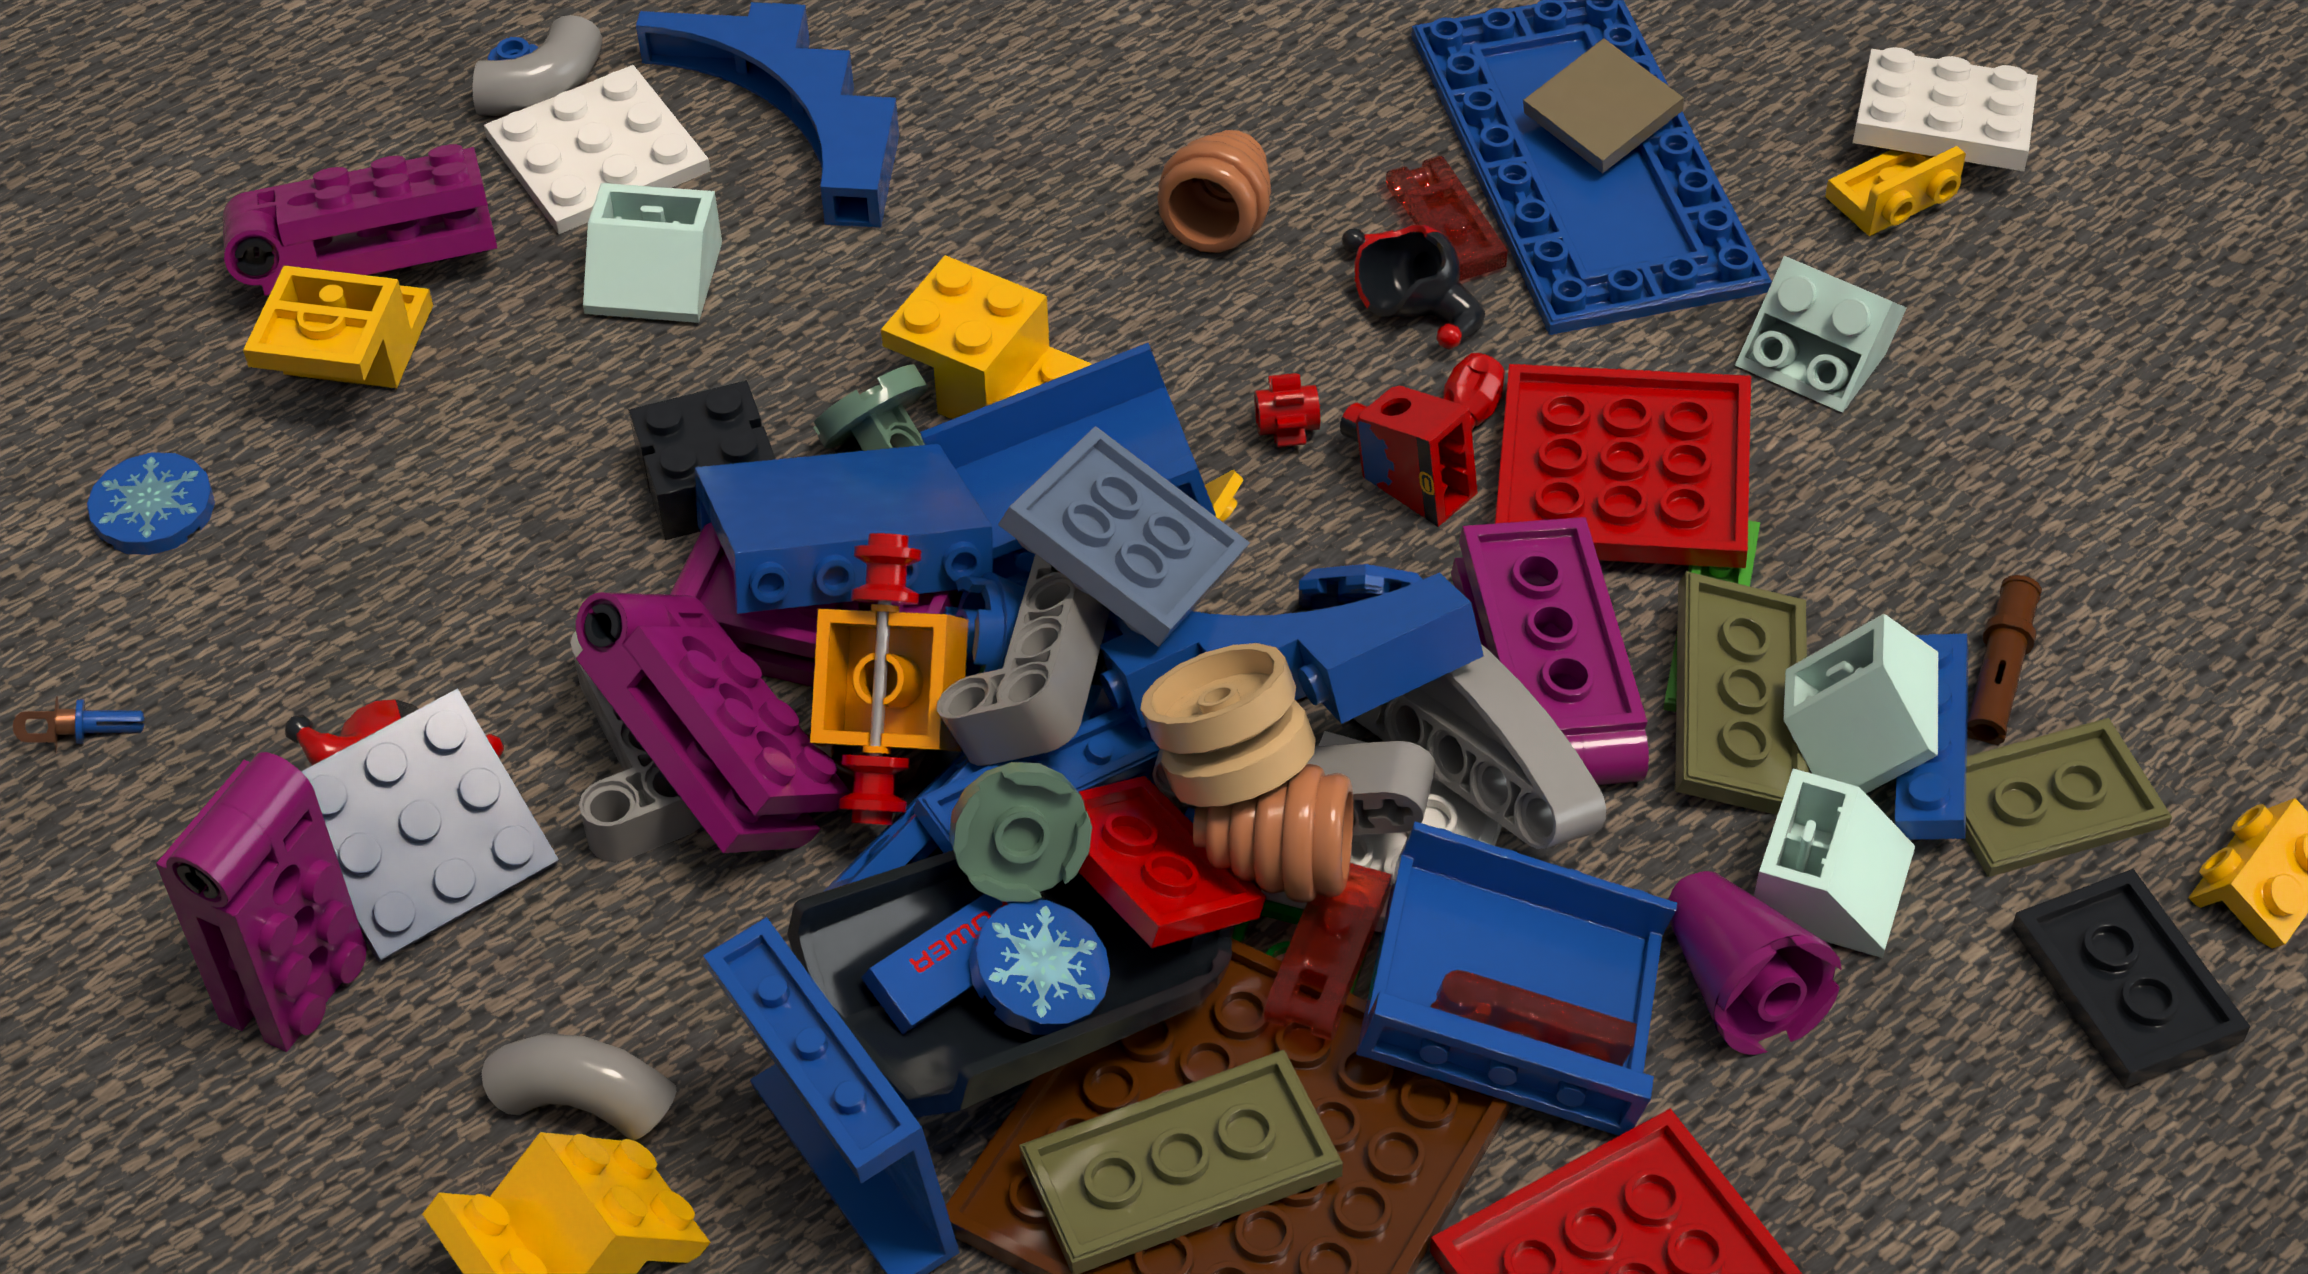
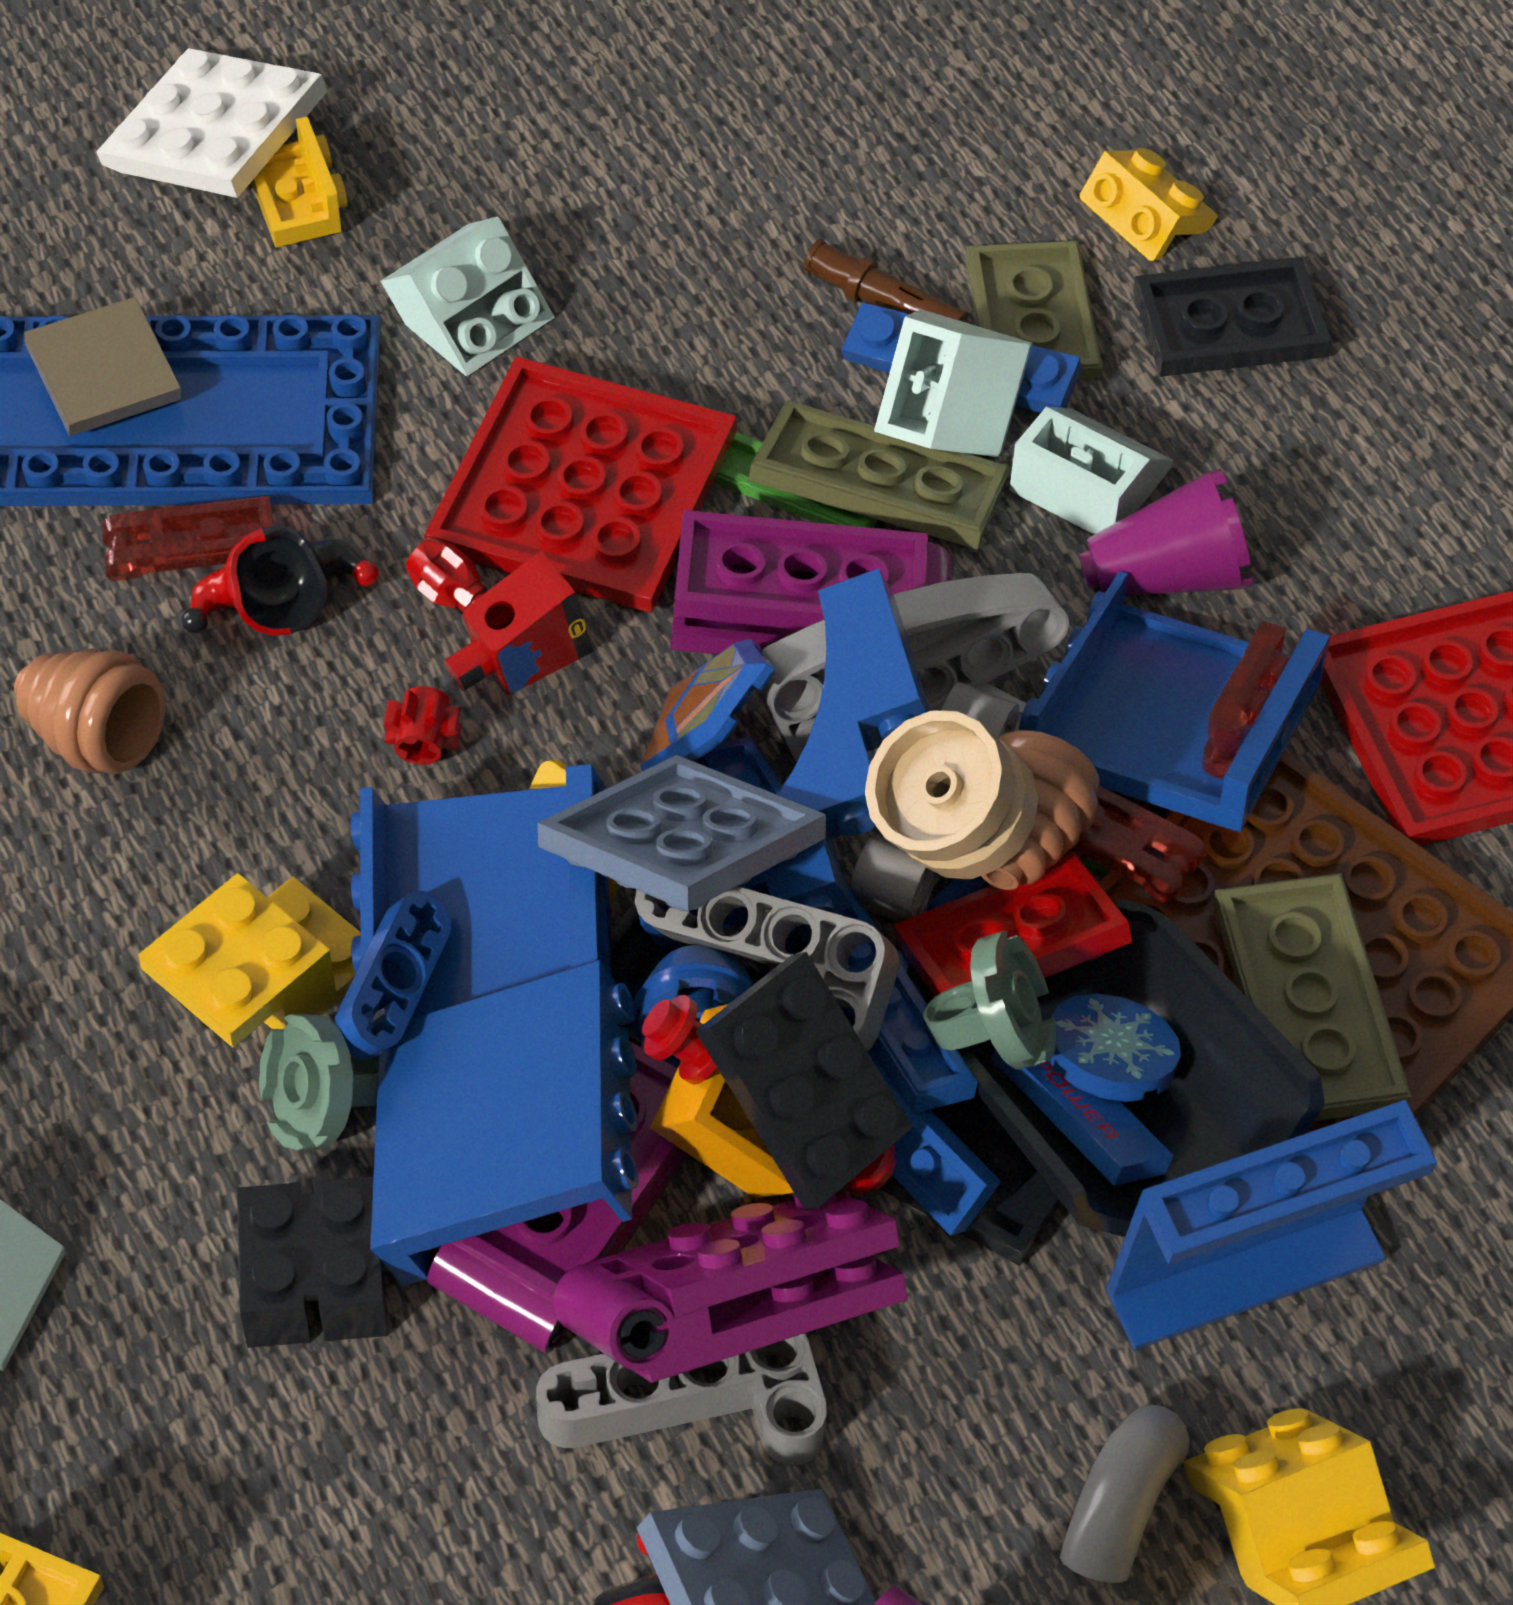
camera: 80 degrees left, 5 degrees up
(879, 680) = (804, 1080): none -> black plate
(930, 431) = (372, 989): none -> blue beam

